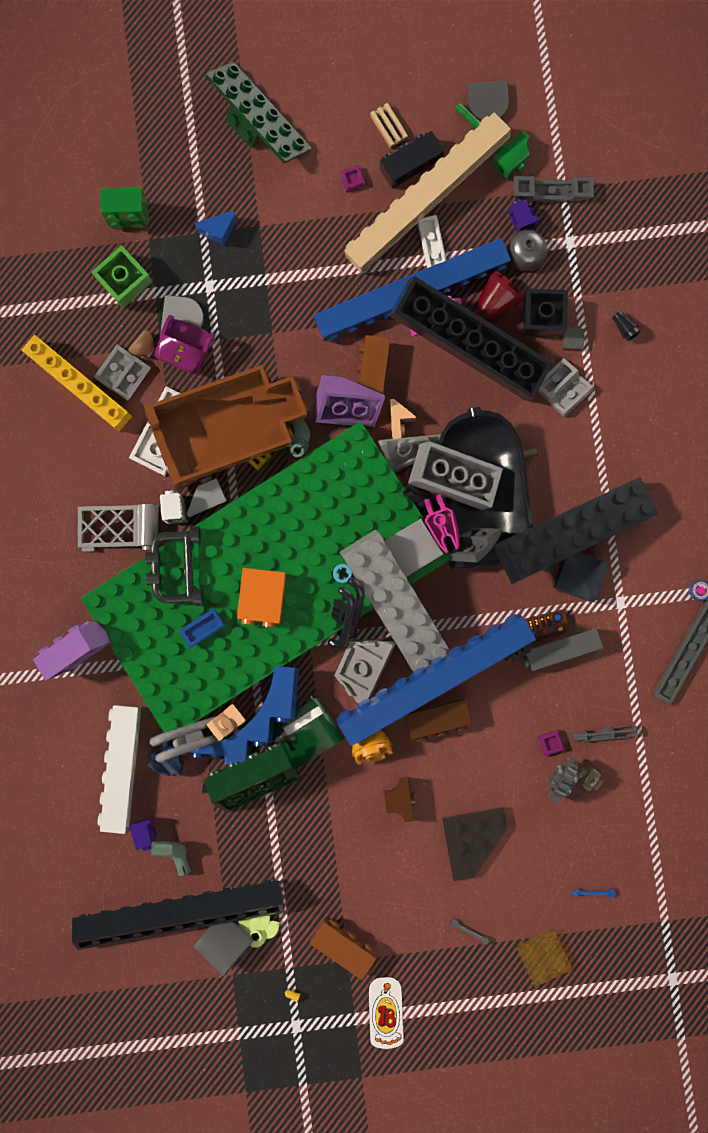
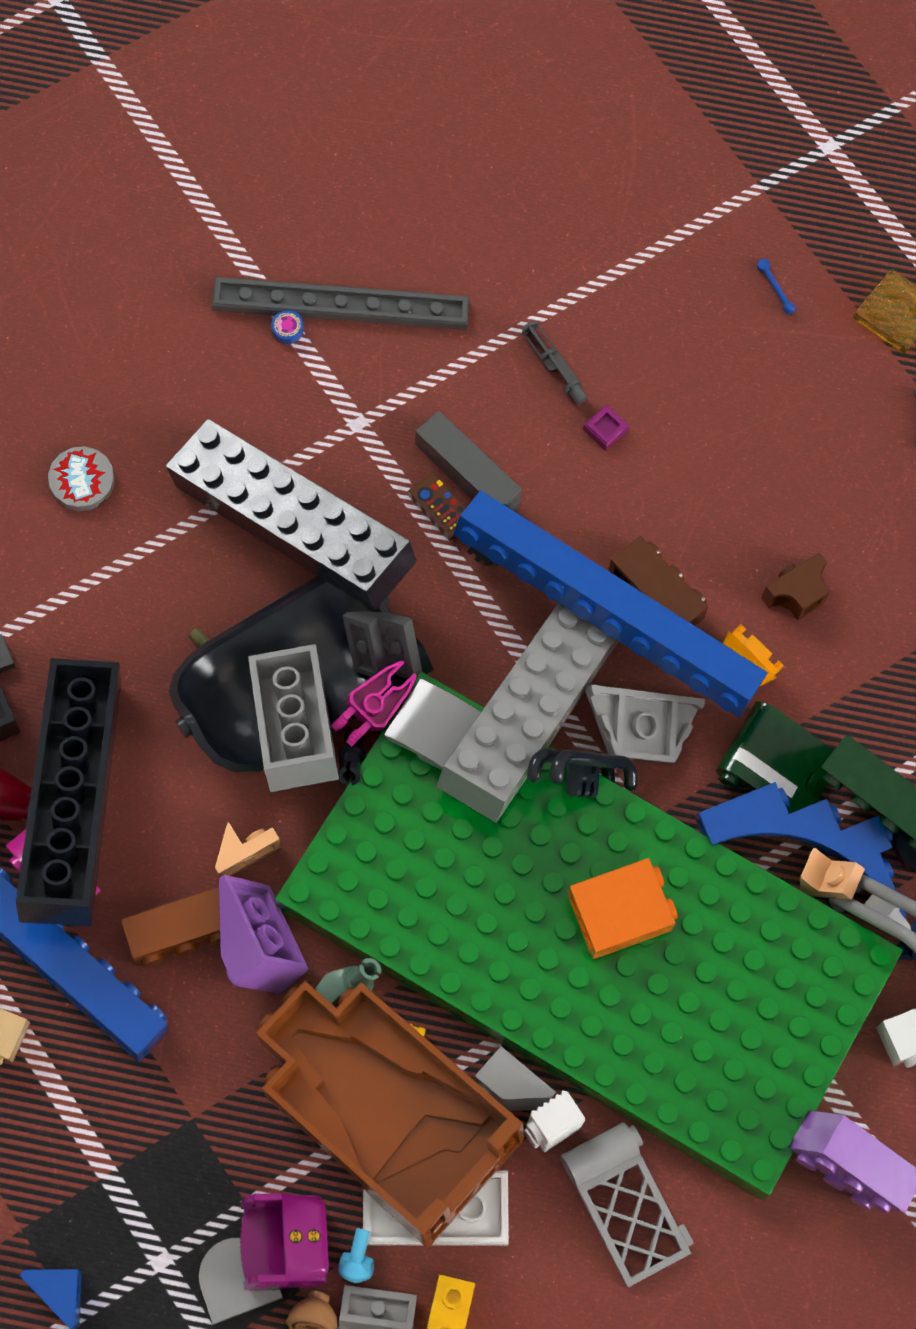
camera: 125 degrees left, 15 degrees down
(153, 558) = (651, 1104): pearl dark grey bar -> none
(156, 378) = (355, 1265): none -> medium azure plate
(202, 628) = (715, 976): blue tile -> none
(336, 576) = (533, 814): medium azure bush -> none
(403, 451) = (286, 815): light grey wing -> none
(472, 839) = (796, 470): clear smoke plate -> none
(563, 780) = (651, 382): dark grey gear -> none
(564, 387) = (75, 632): light grey slope -> none
(581, 576) = (353, 480): black brick -> none
(589, 778) = (628, 354): dark tan gear -> none
(658, 431) = (81, 478): none -> tile

